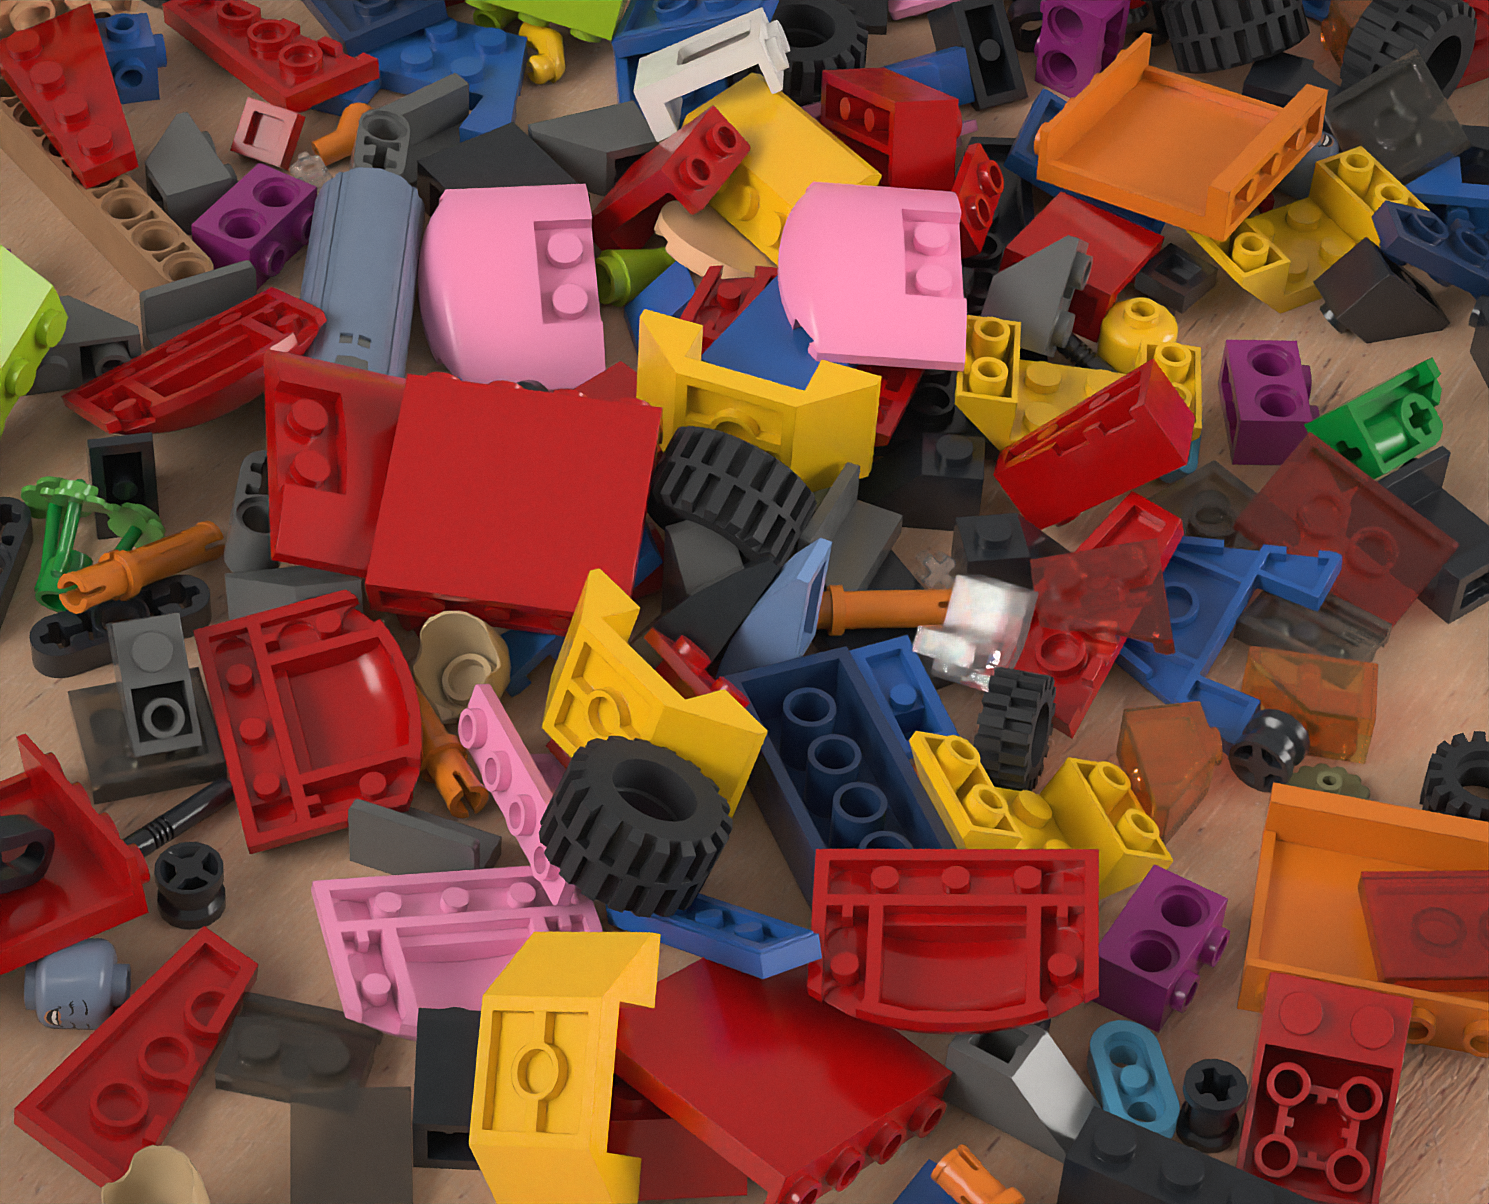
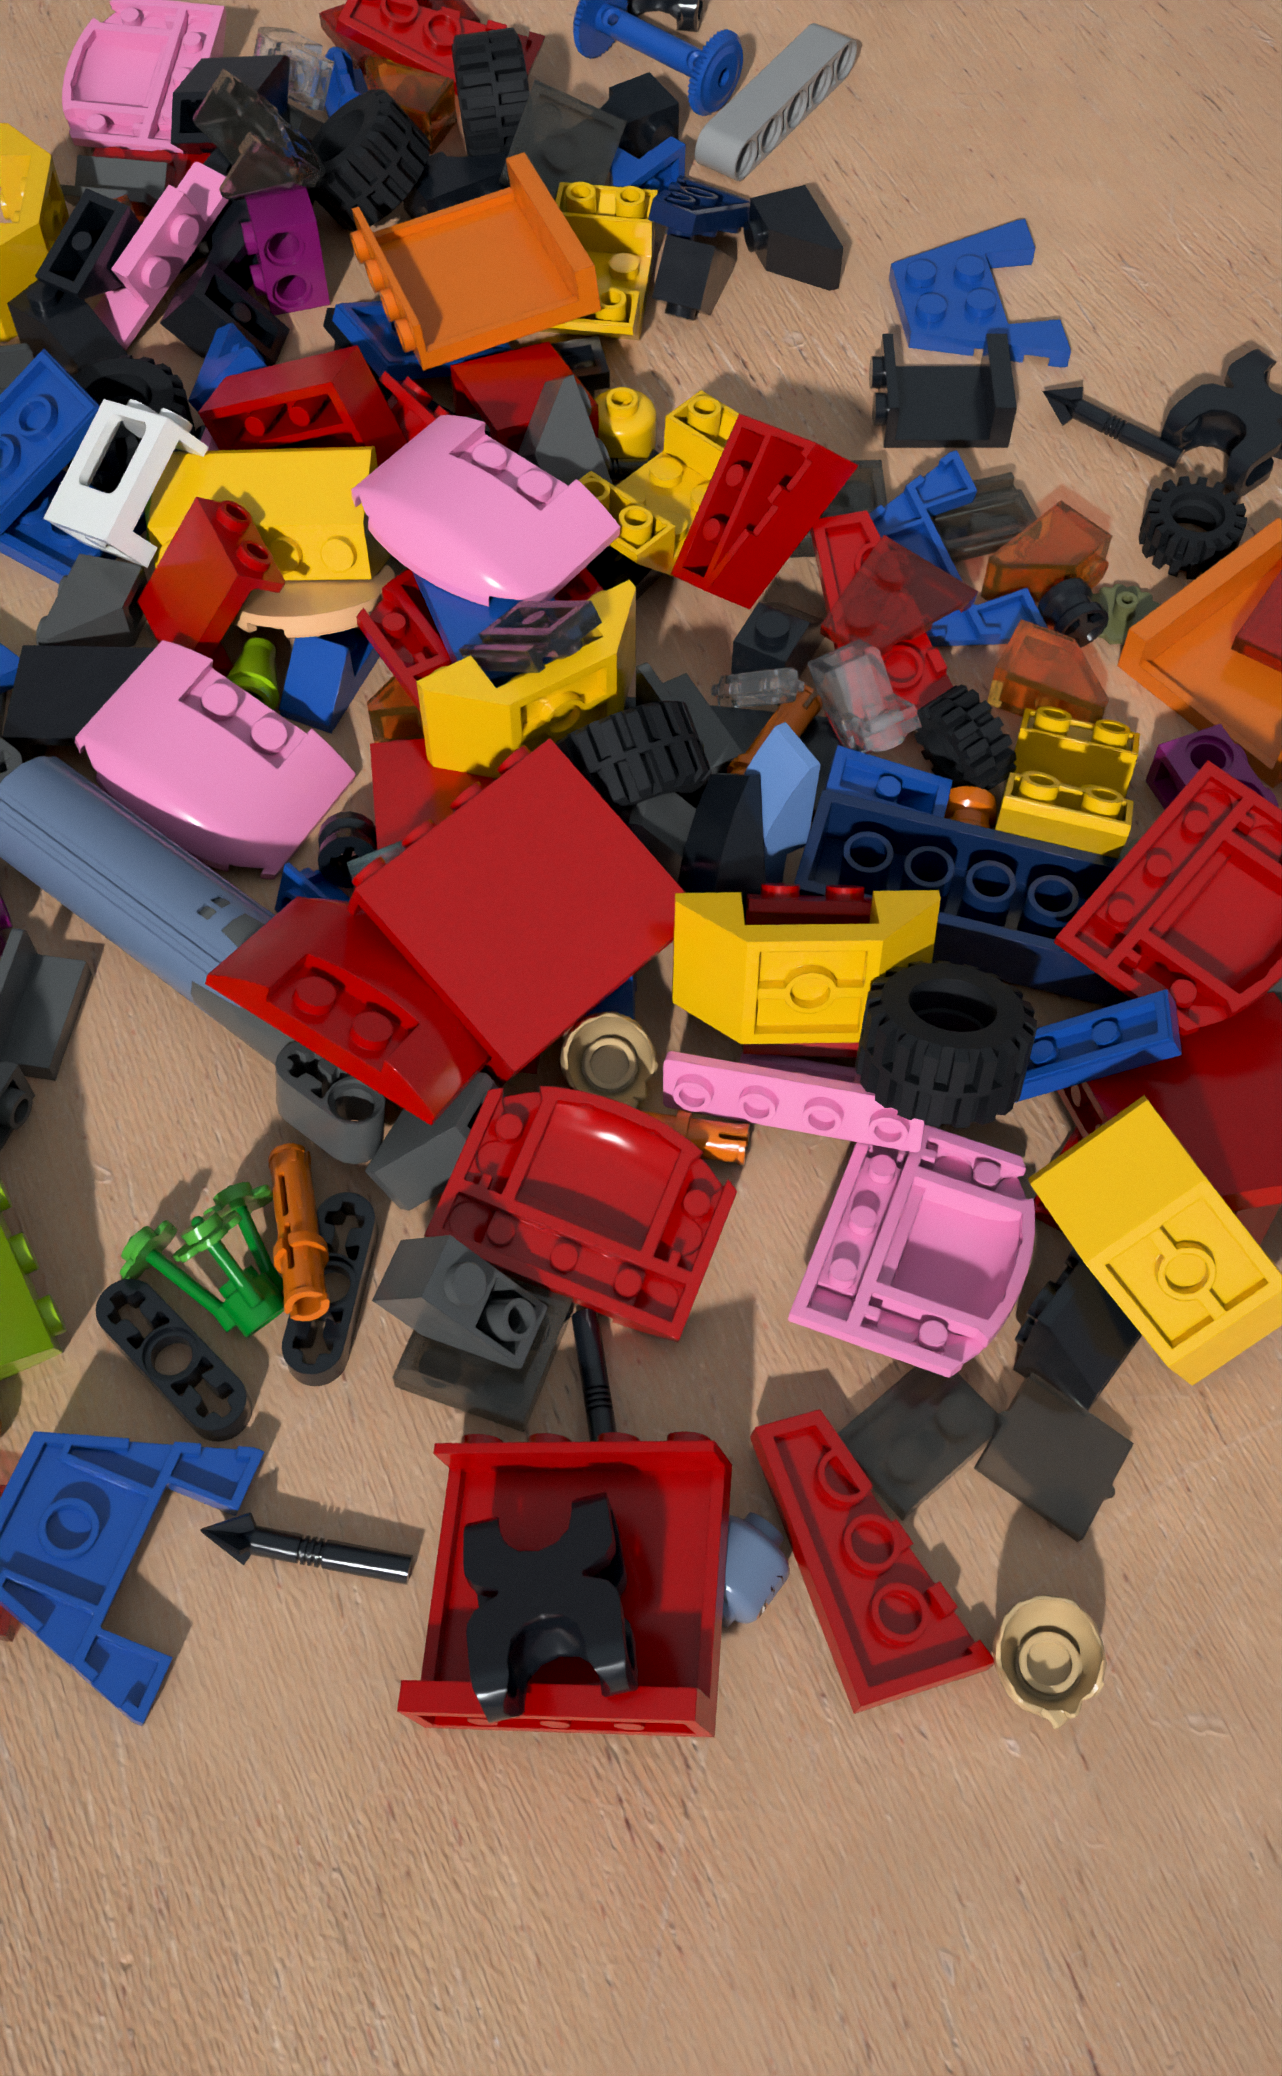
camera: 50 degrees left, 15 degrees up
(123, 473) = (173, 1177): black slope -> none
(190, 885) = (683, 1393): black wheel -> none
(200, 370) = (110, 1043): red slope -> none
(416, 841) = (774, 1203): dark grey panel -> none
(769, 354) = (533, 632): none -> clear smoke plate
(929, 480) = (668, 627): black slope -> none
(1264, 400) = (742, 386): magenta brick -> none
(1333, 506) = (908, 429): clear red tile -> none
(1386, 421) = (830, 351): green piece -> none

